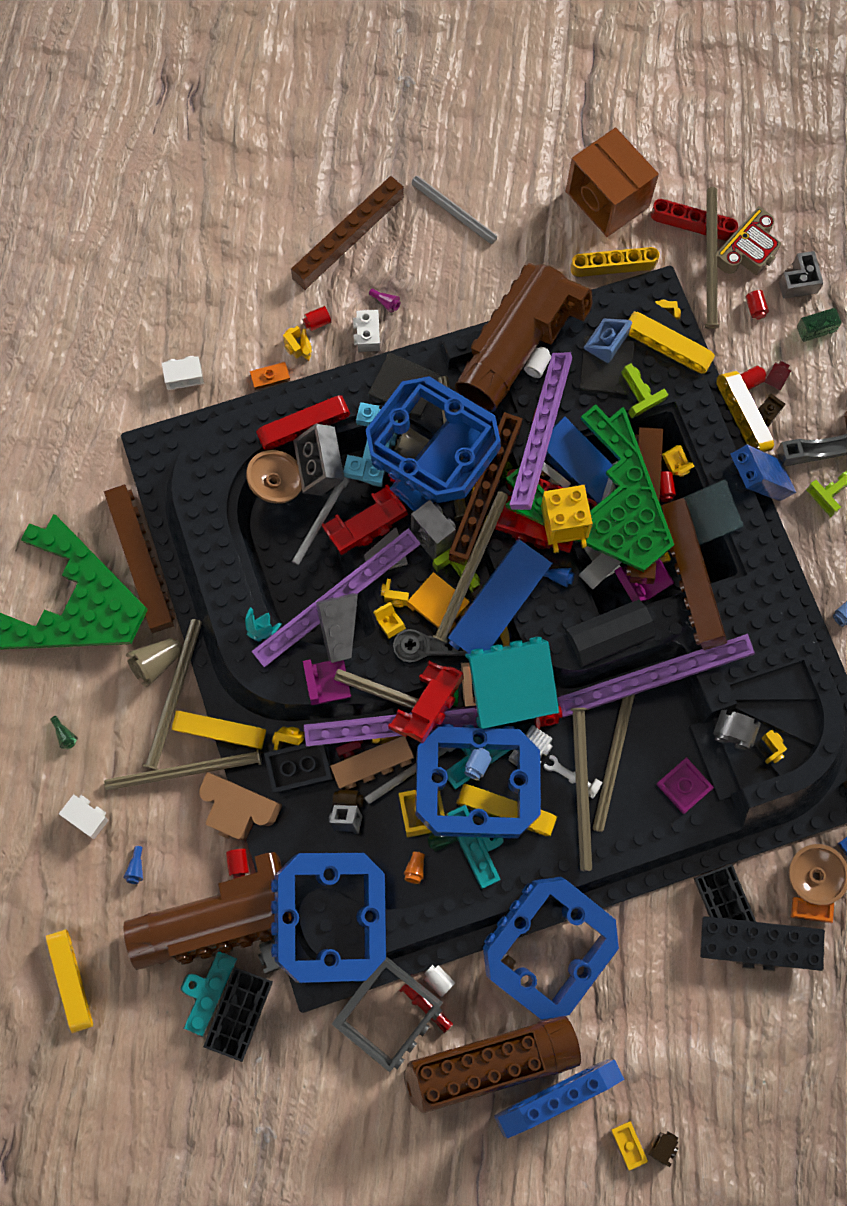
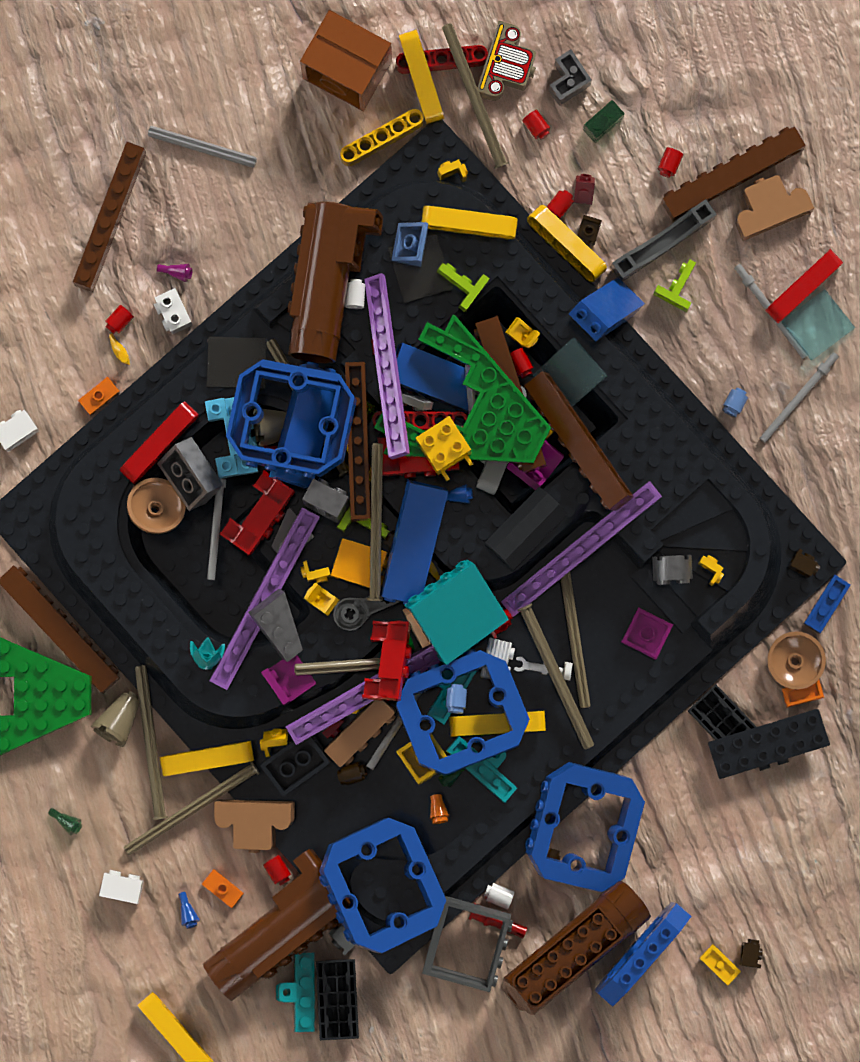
camera: 20 degrees left, 10 degrees up
(178, 859) = (222, 888): none -> orange plate
(291, 344) = (106, 357): yellow bracket -> none
(345, 818) = (361, 786): dark grey brick -> none
(671, 222) = (421, 76): none -> yellow beam

